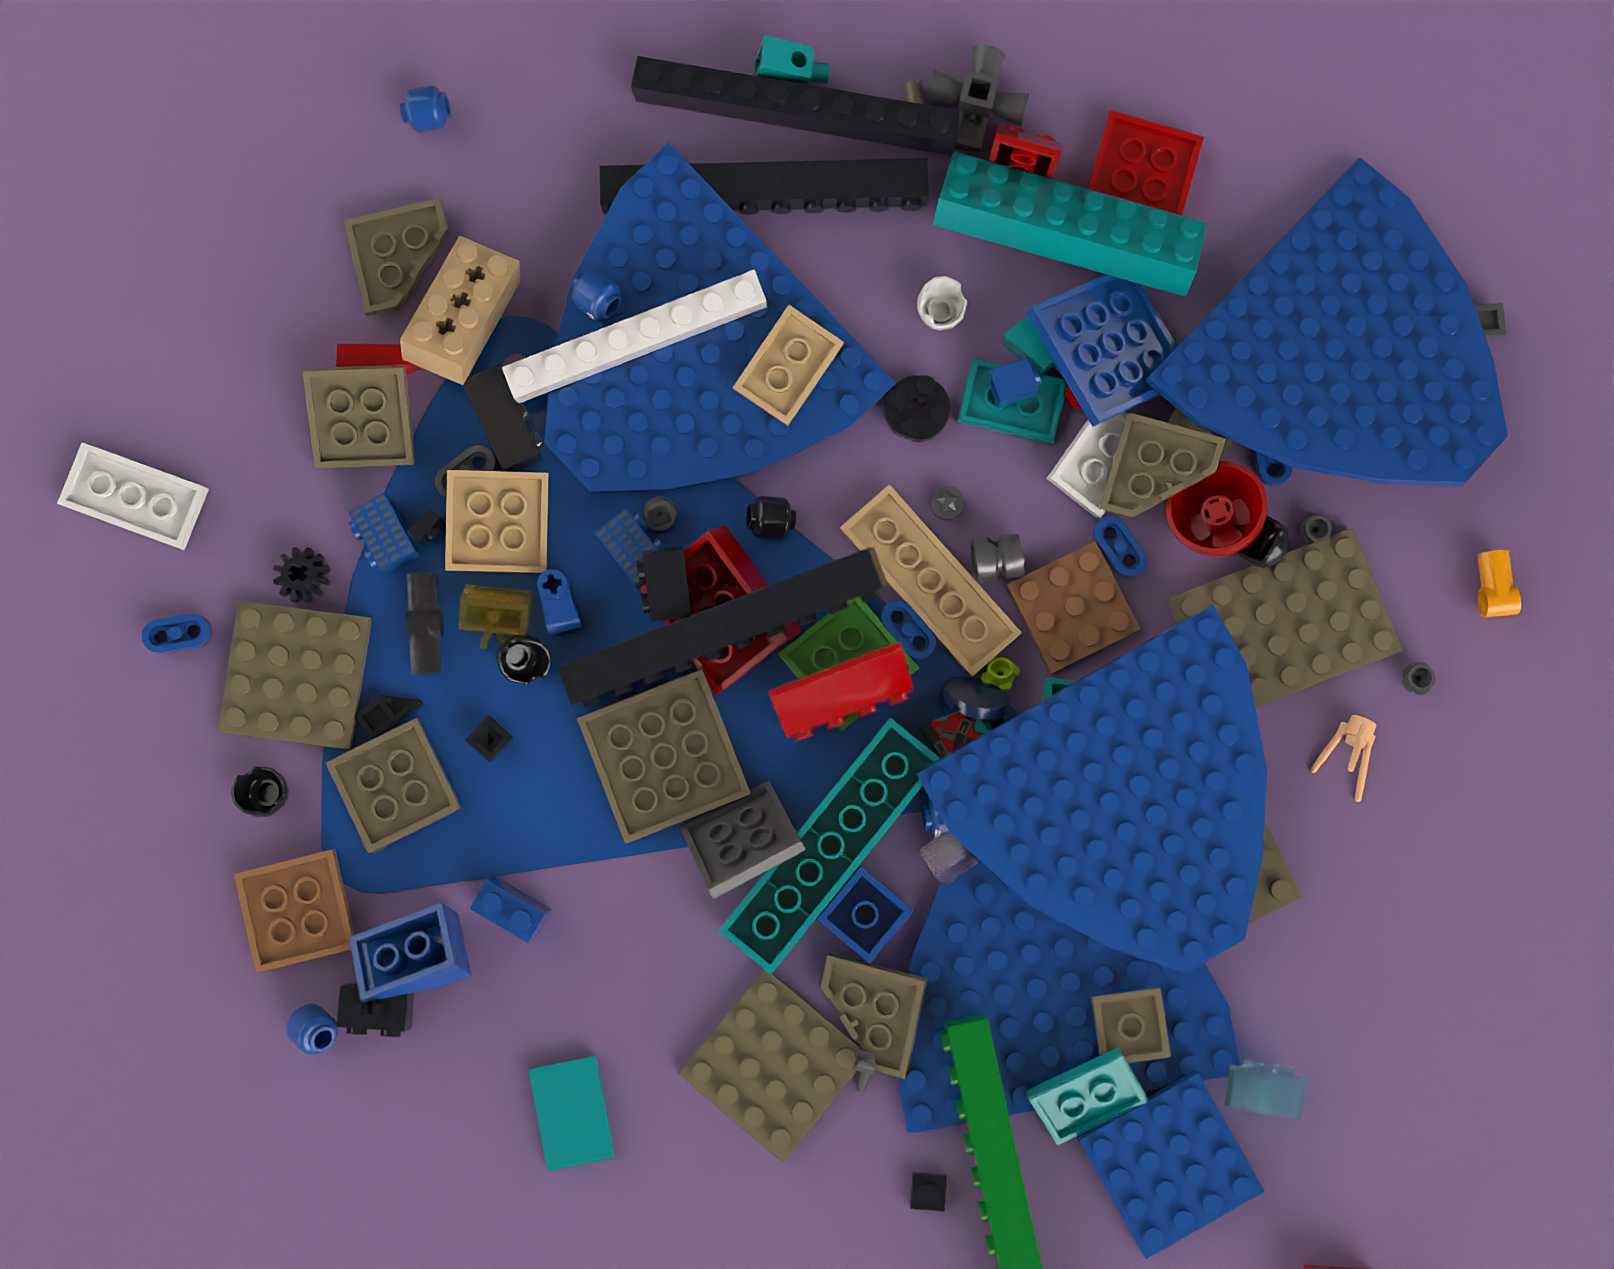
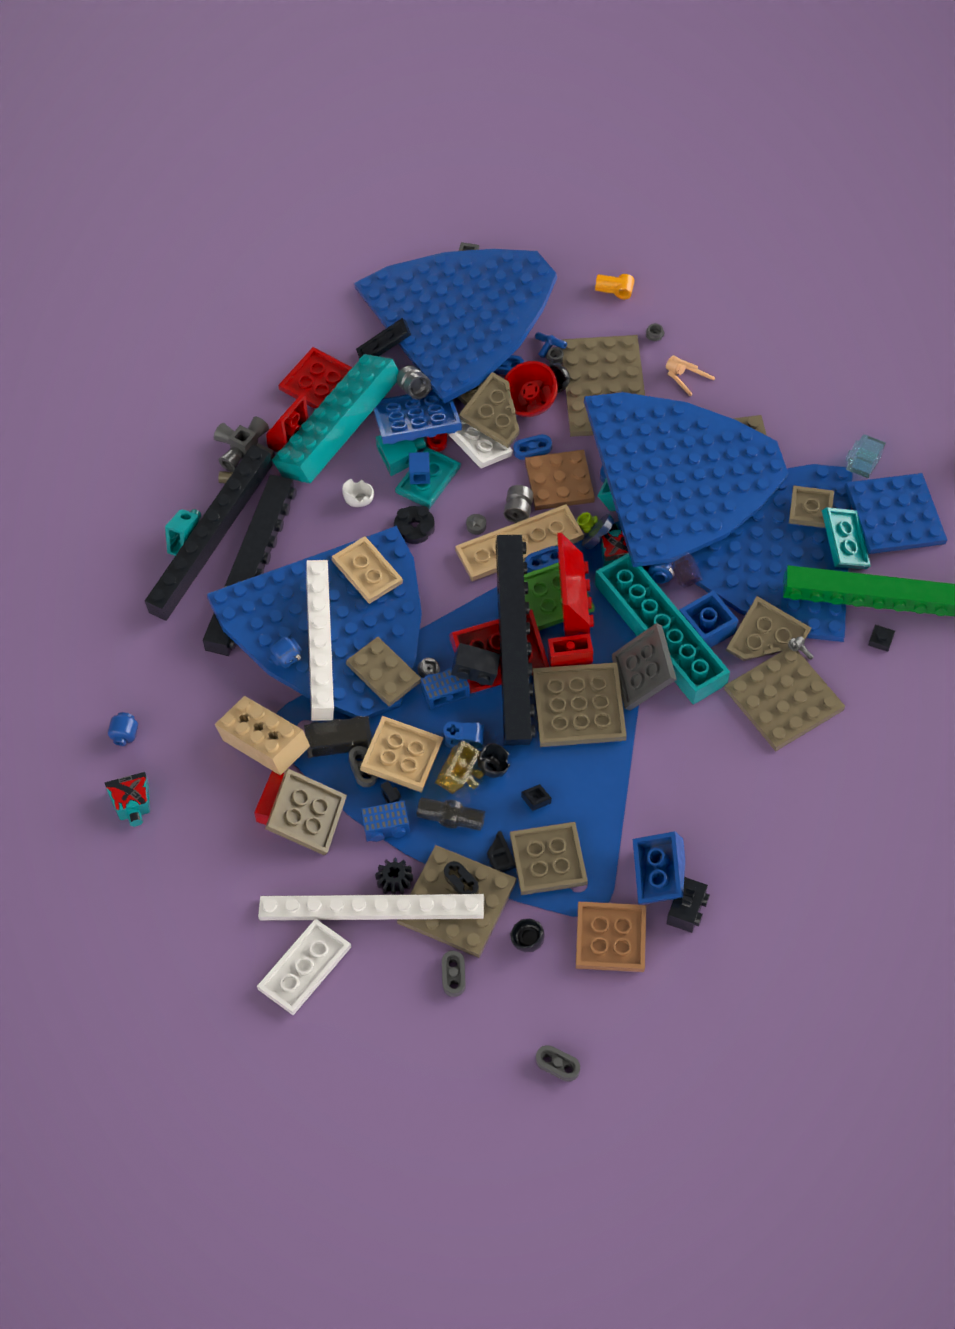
camera: 70 degrees left, 25 degrees down
(81, 888) = (559, 1062): none -> dark grey plate
(178, 633) = (405, 964): blue plate -> none
(180, 705) = (453, 975): none -> dark grey plate
(242, 561) = (372, 907): none -> white plate
(311, 1029) = (690, 942): blue head -> none
(320, 162) = (130, 797): none -> torso
(320, 676) = (465, 877): none -> black beam
(394, 250) = (205, 772): dark tan plate -> none
(510, 909) = (647, 809): blue brick -> none
(571, 1113) = (784, 813): teal tile -> none
(624, 449) = (383, 671): none -> dark tan plate
(744, 717) = (570, 650): none -> red brick
(770, 517) = (453, 610): black head -> none
(1174, 320) = (414, 382): none -> flat silver wheel
(1246, 245) = (385, 340): none -> black tile
(1341, 512) = (549, 340): none -> blue piece

